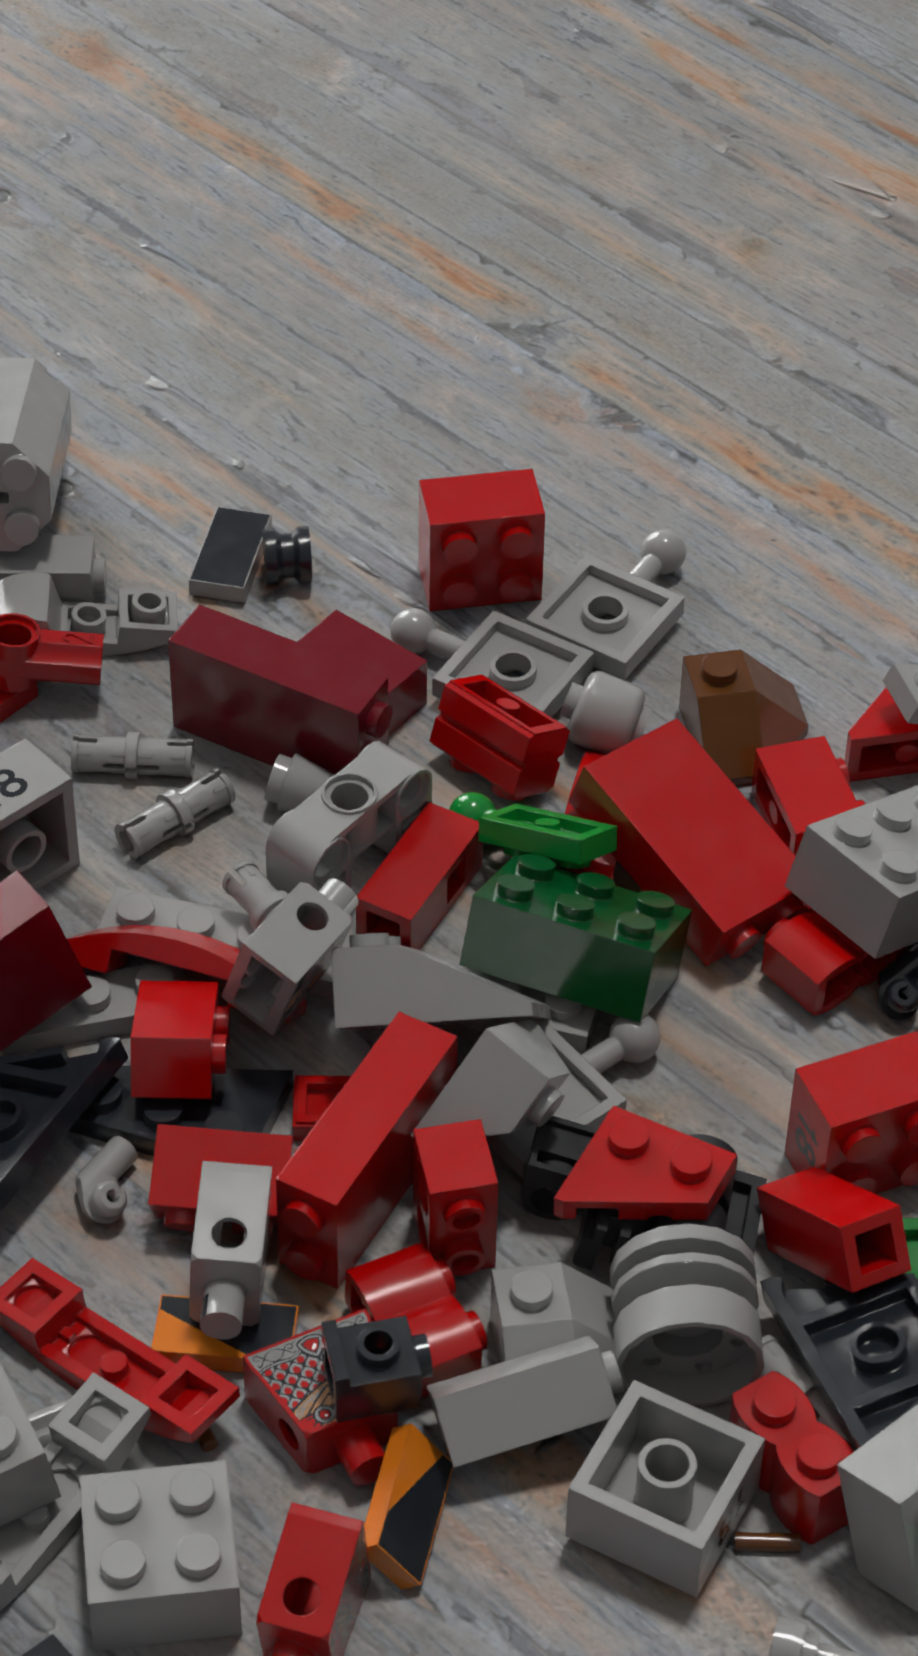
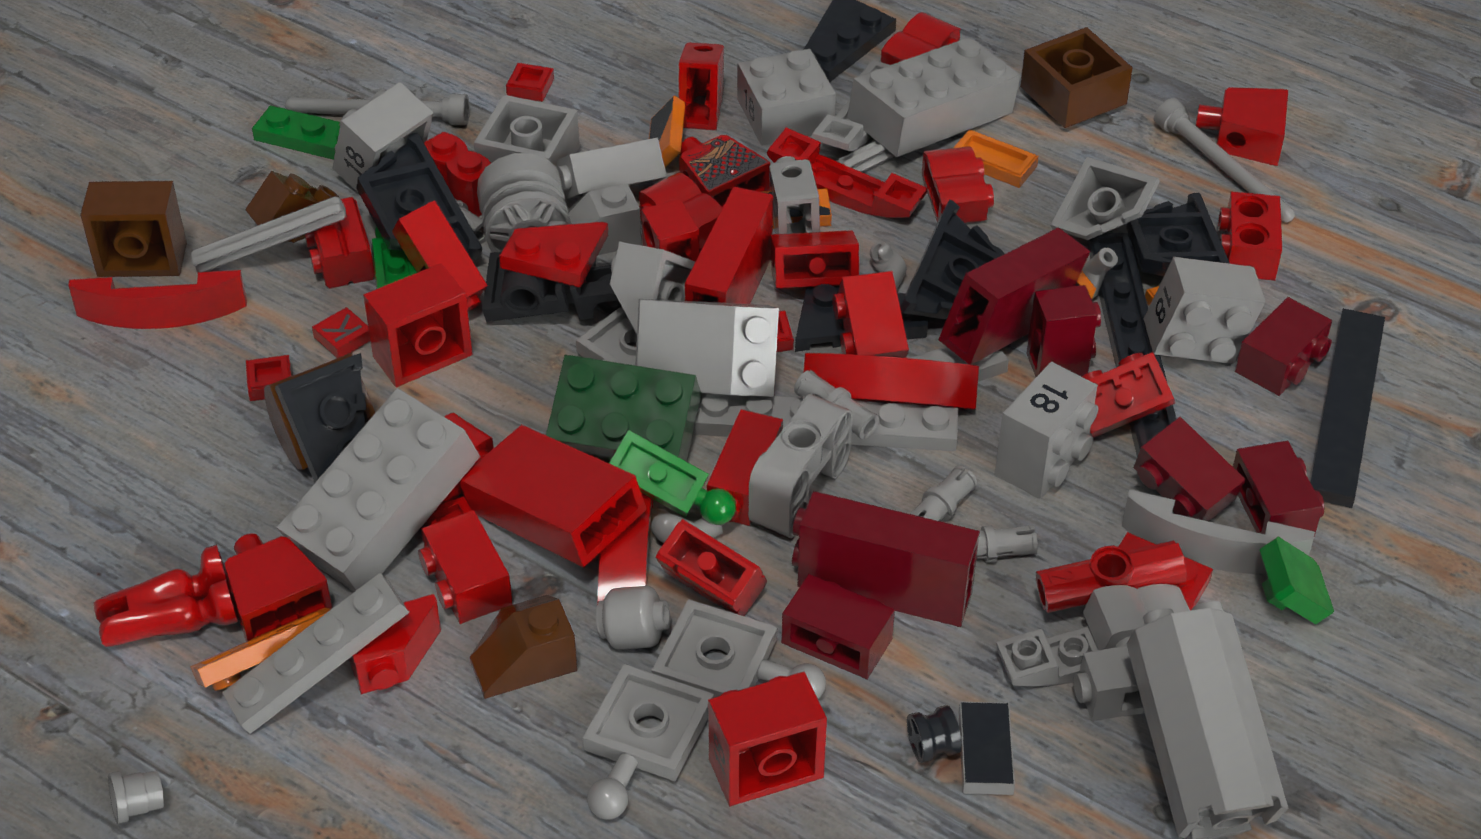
camera: 170 degrees right, 0 degrees up
(290, 952) = (808, 324): light grey torso -> none
(374, 1367) = (695, 144): black brick -> none

